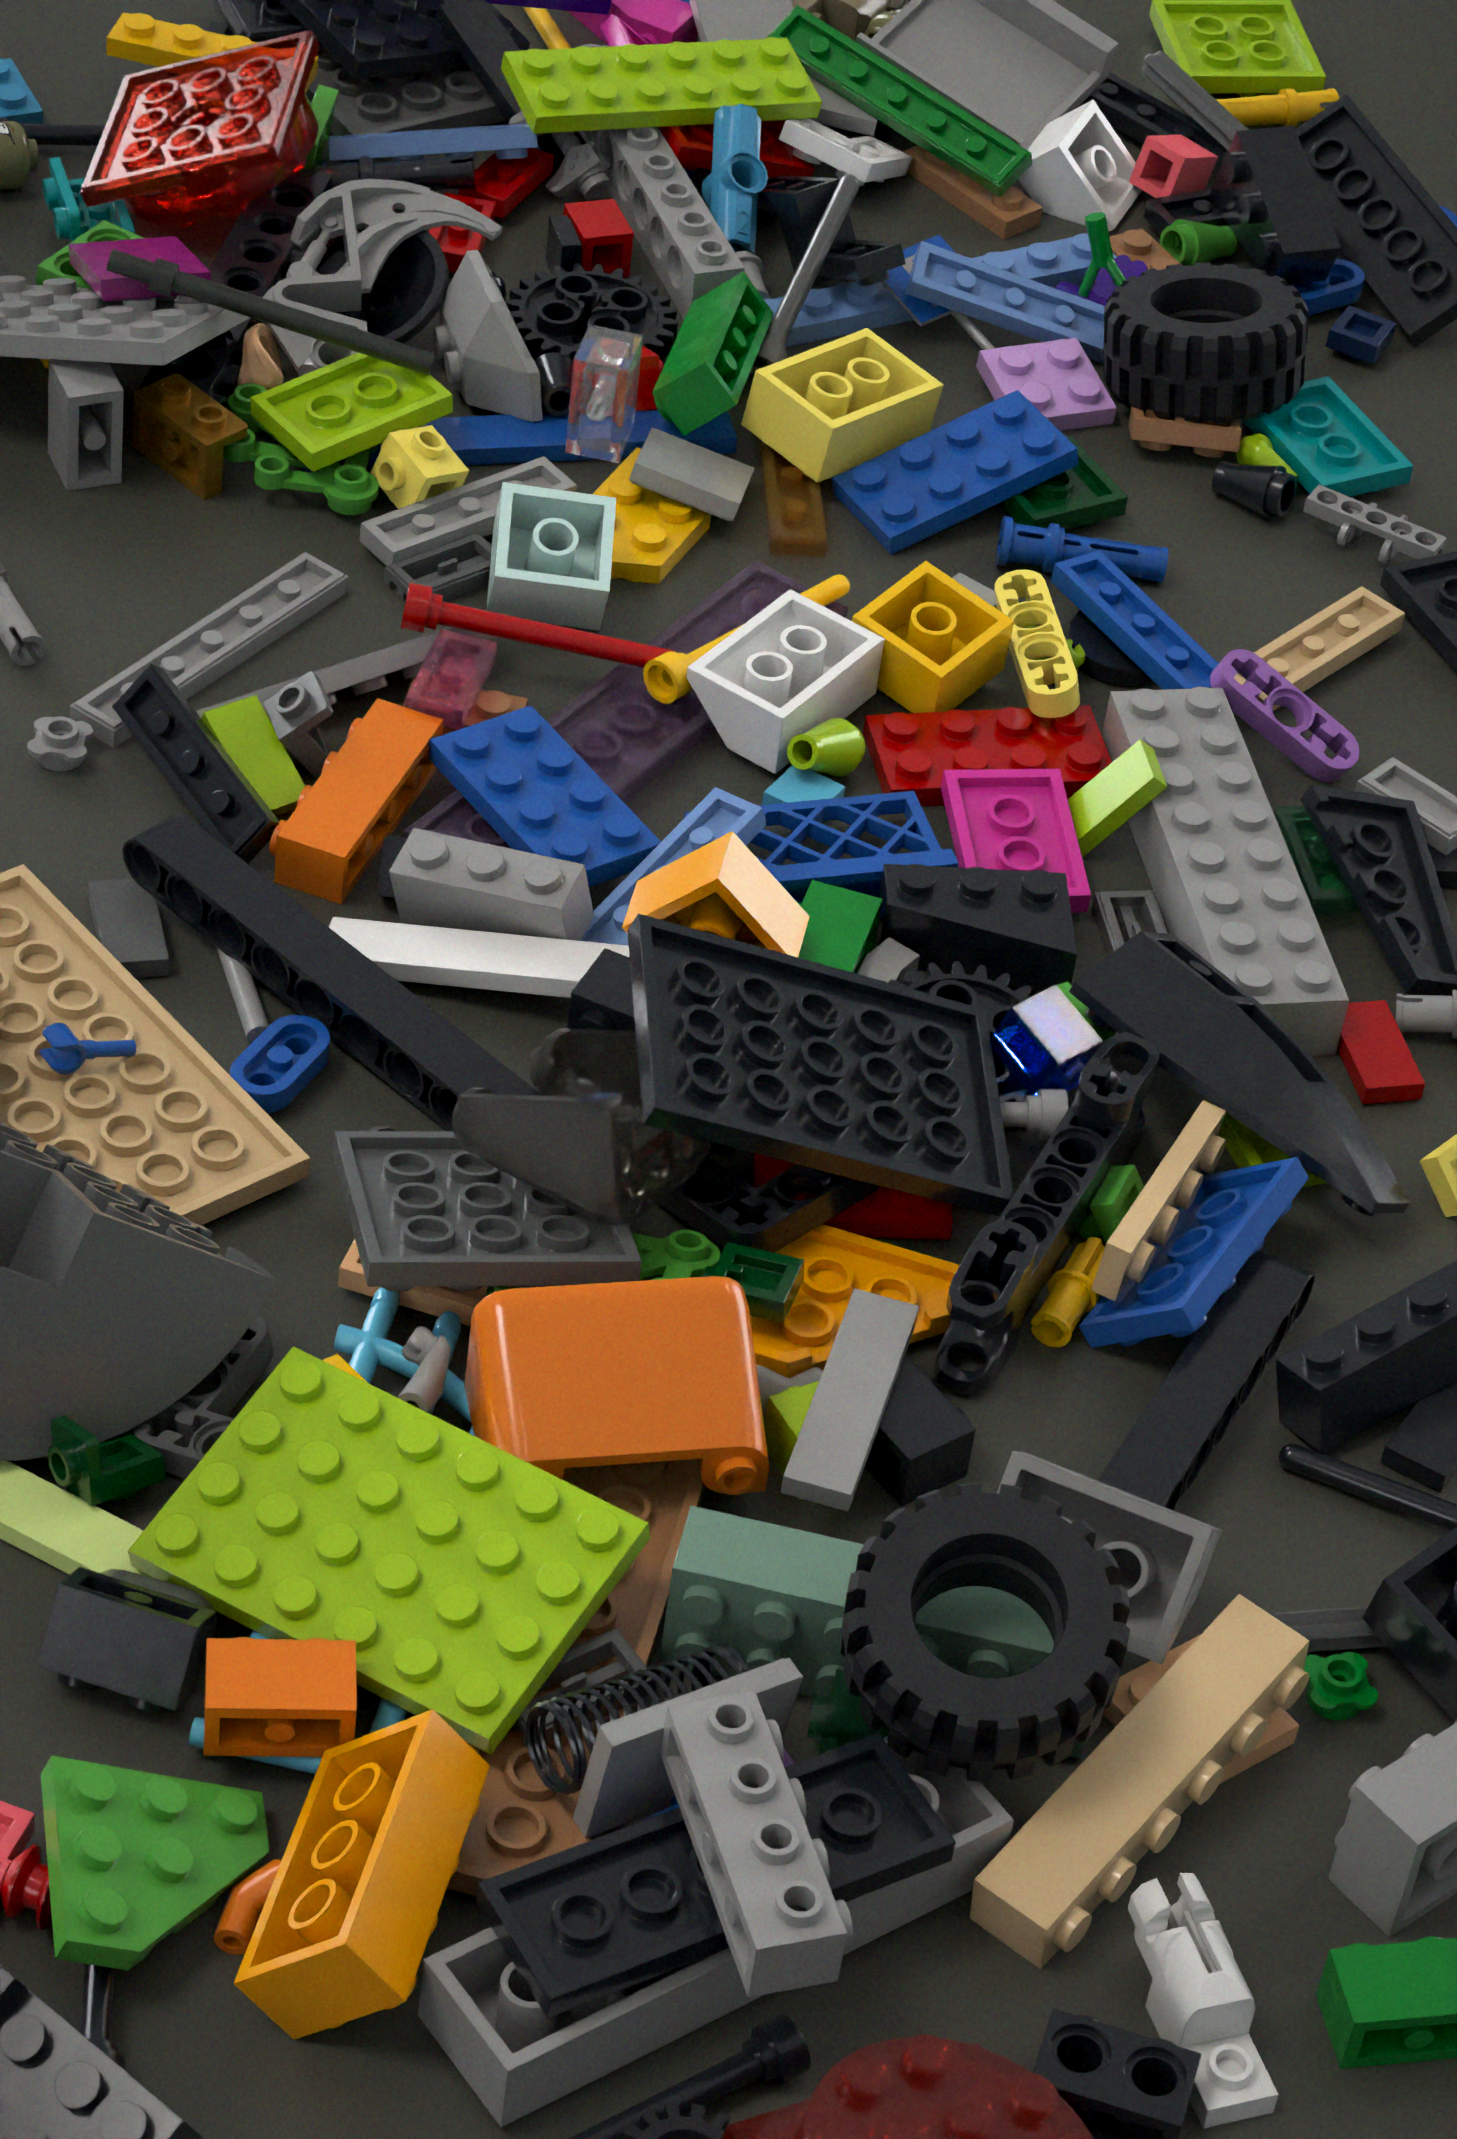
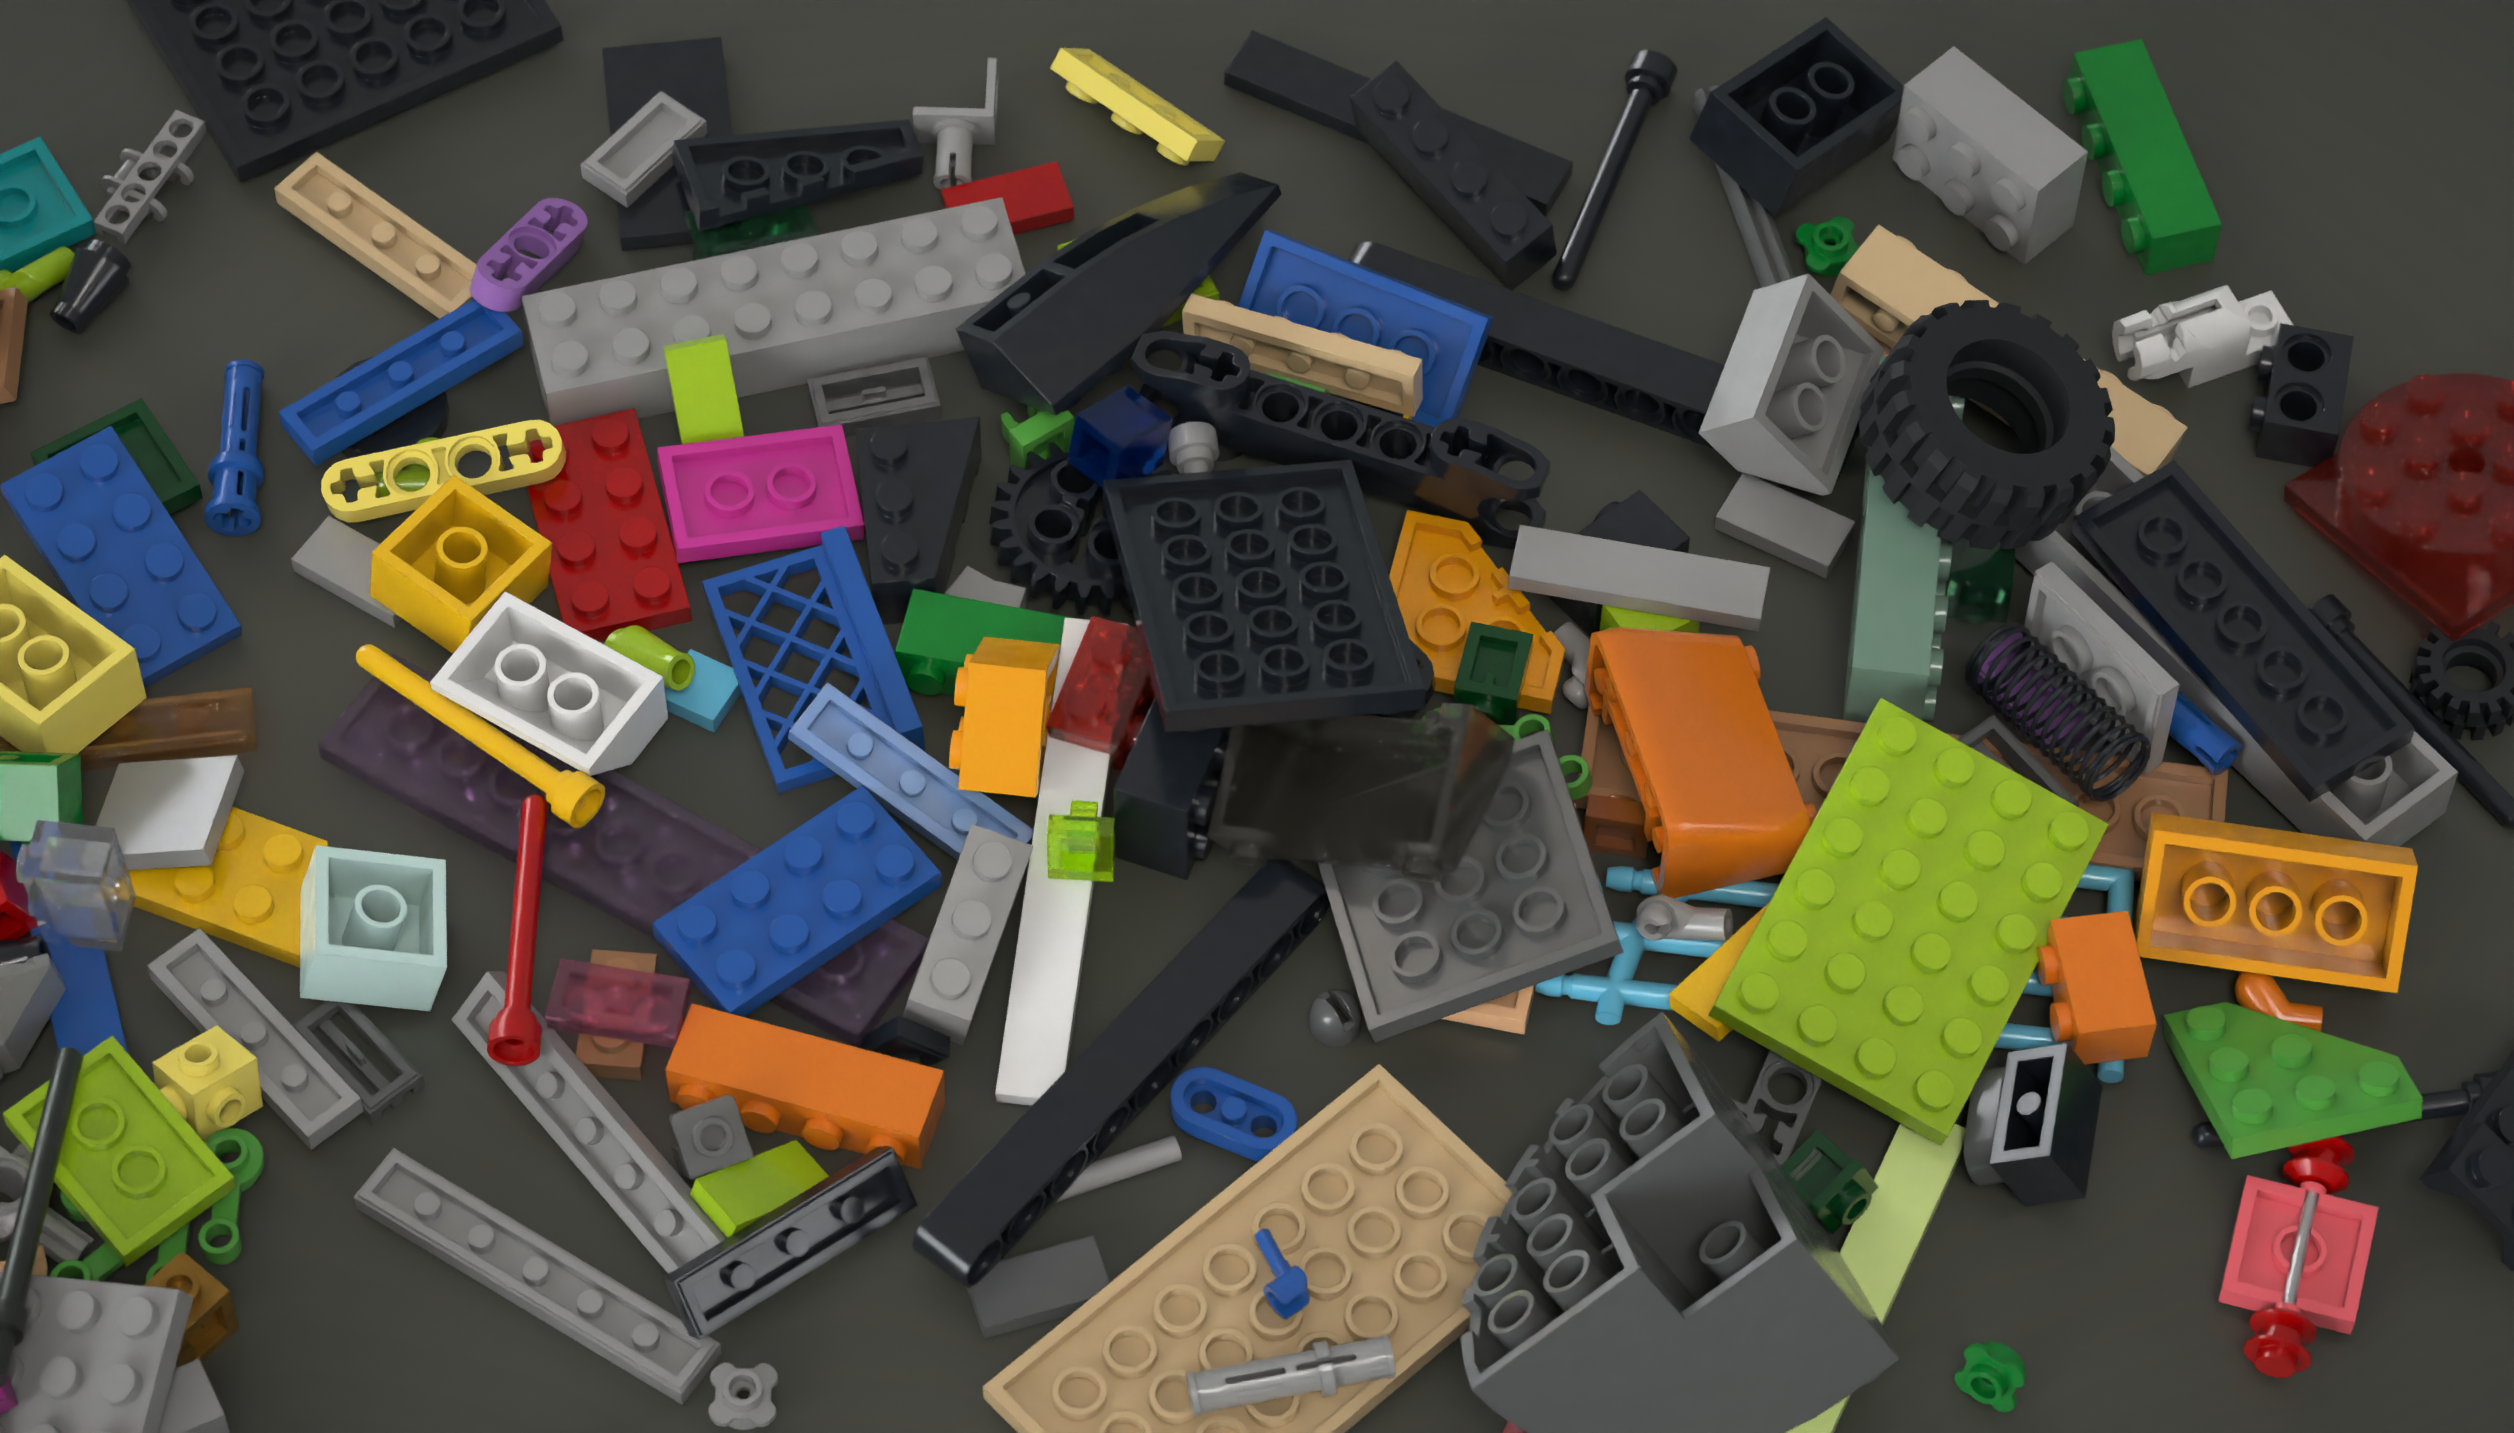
camera: 90 degrees left, 15 degrees up
(564, 947) = (1081, 844): none -> clear neon green tile
(755, 1844) = (2247, 581): light grey brick -> none

